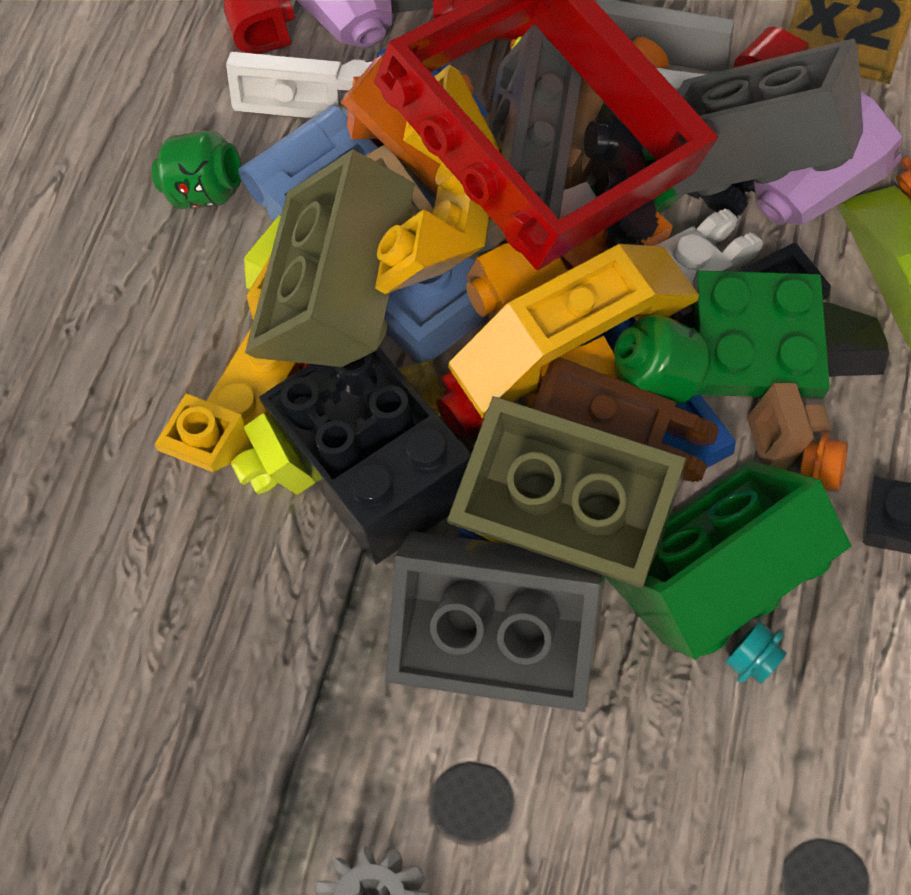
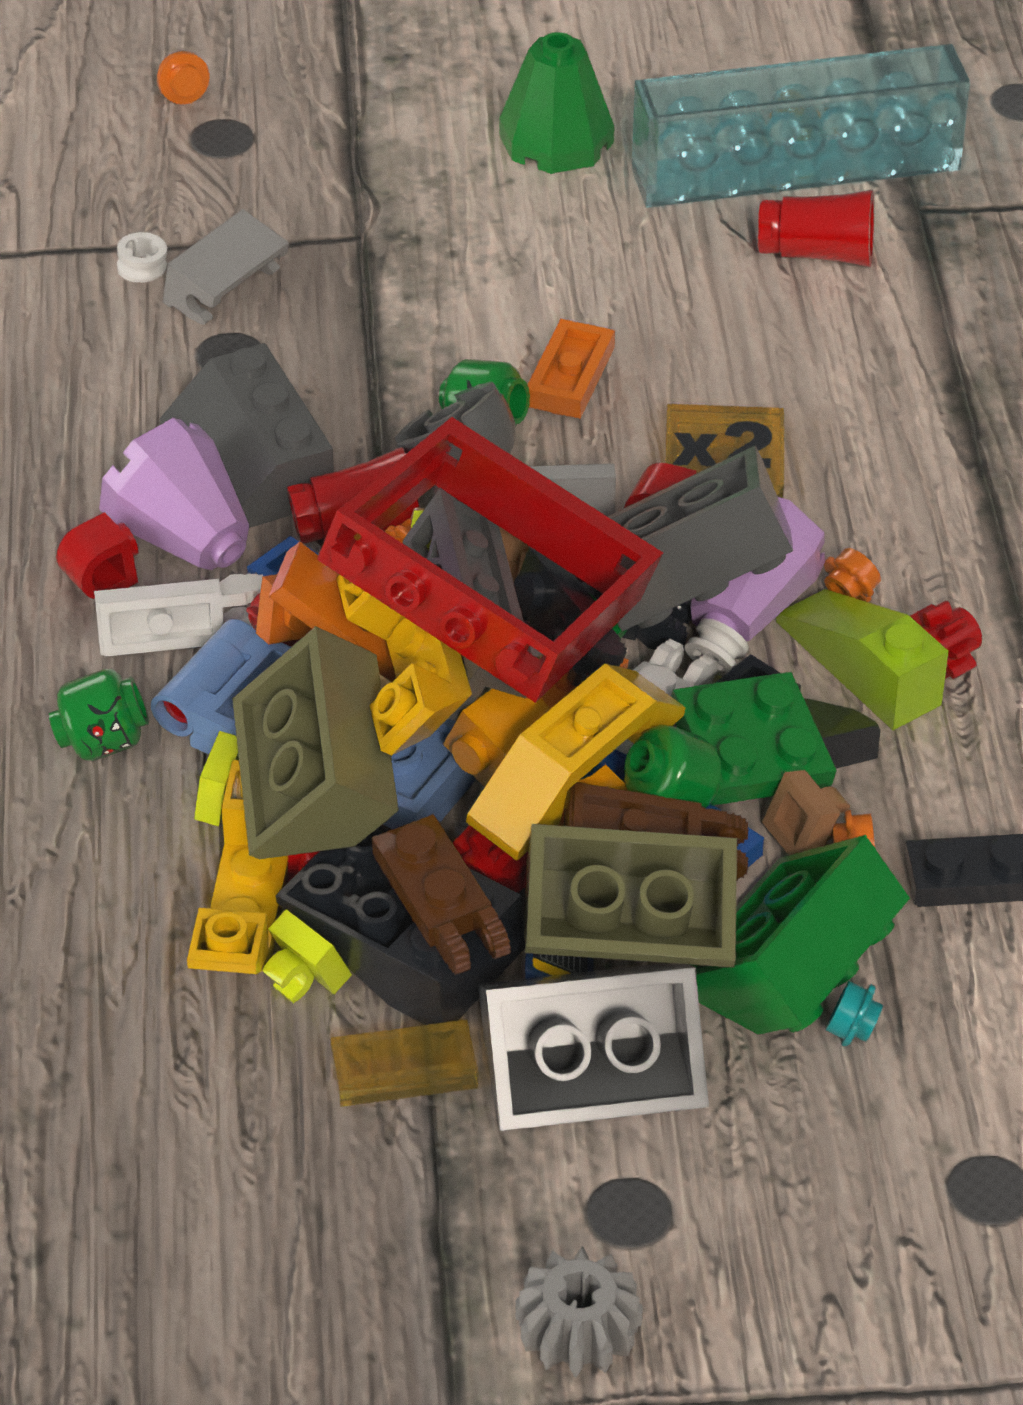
camera: 25 degrees left, 15 degrees down
(325, 586) = (404, 1063): none -> clear yellow tile
(390, 438) = (439, 891): none -> reddish brown hinge
(767, 225) = (717, 642): none -> white bush

